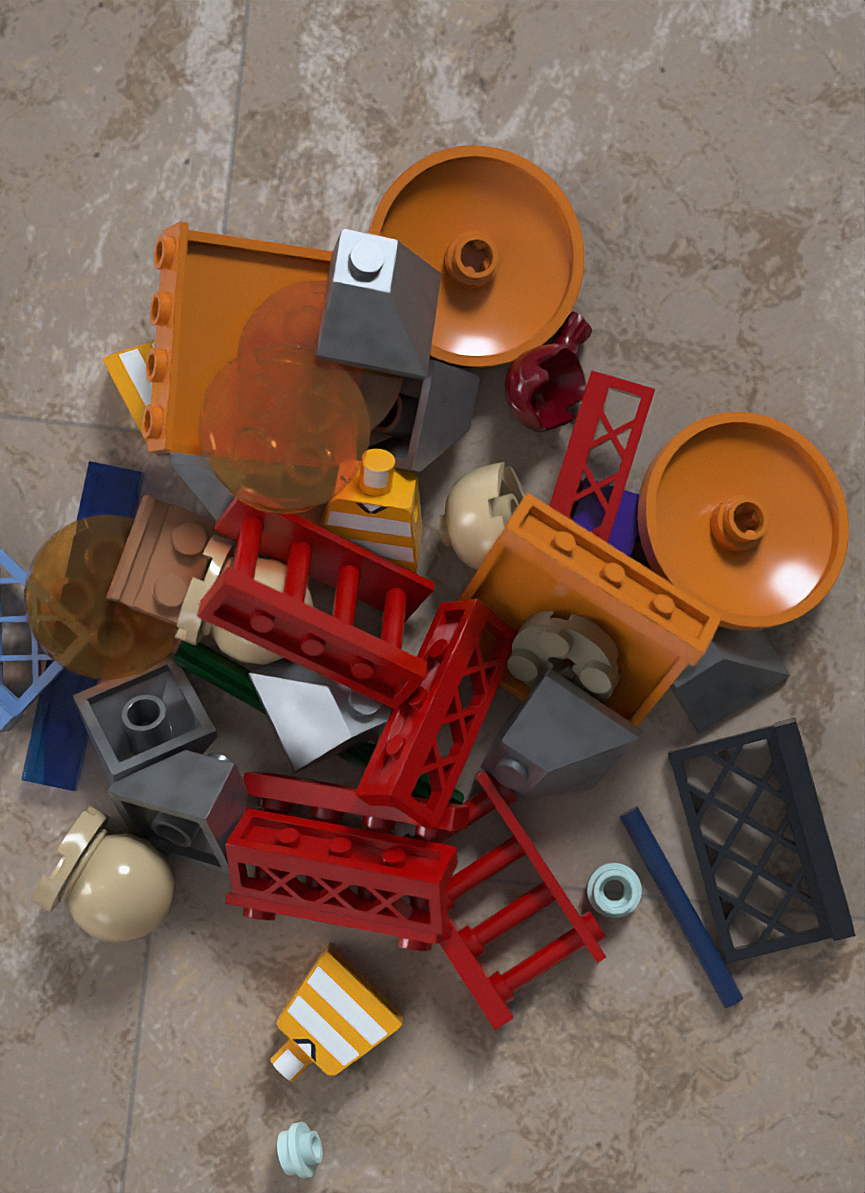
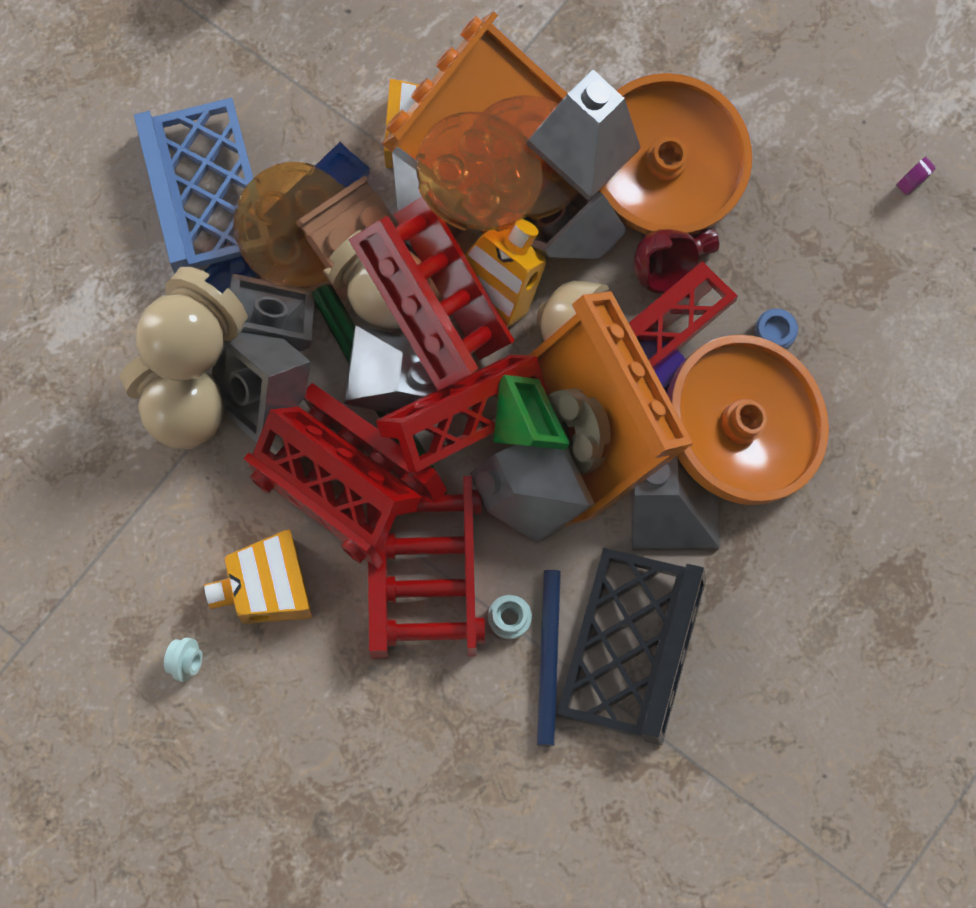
camera: 30 degrees right, 15 degrees down
(81, 833) = (186, 328): none -> tan tile
(514, 682) = (526, 415): none -> green slope
(709, 387) = (777, 327): none -> medium blue tile
(763, 107) = (916, 176): none -> magenta tile

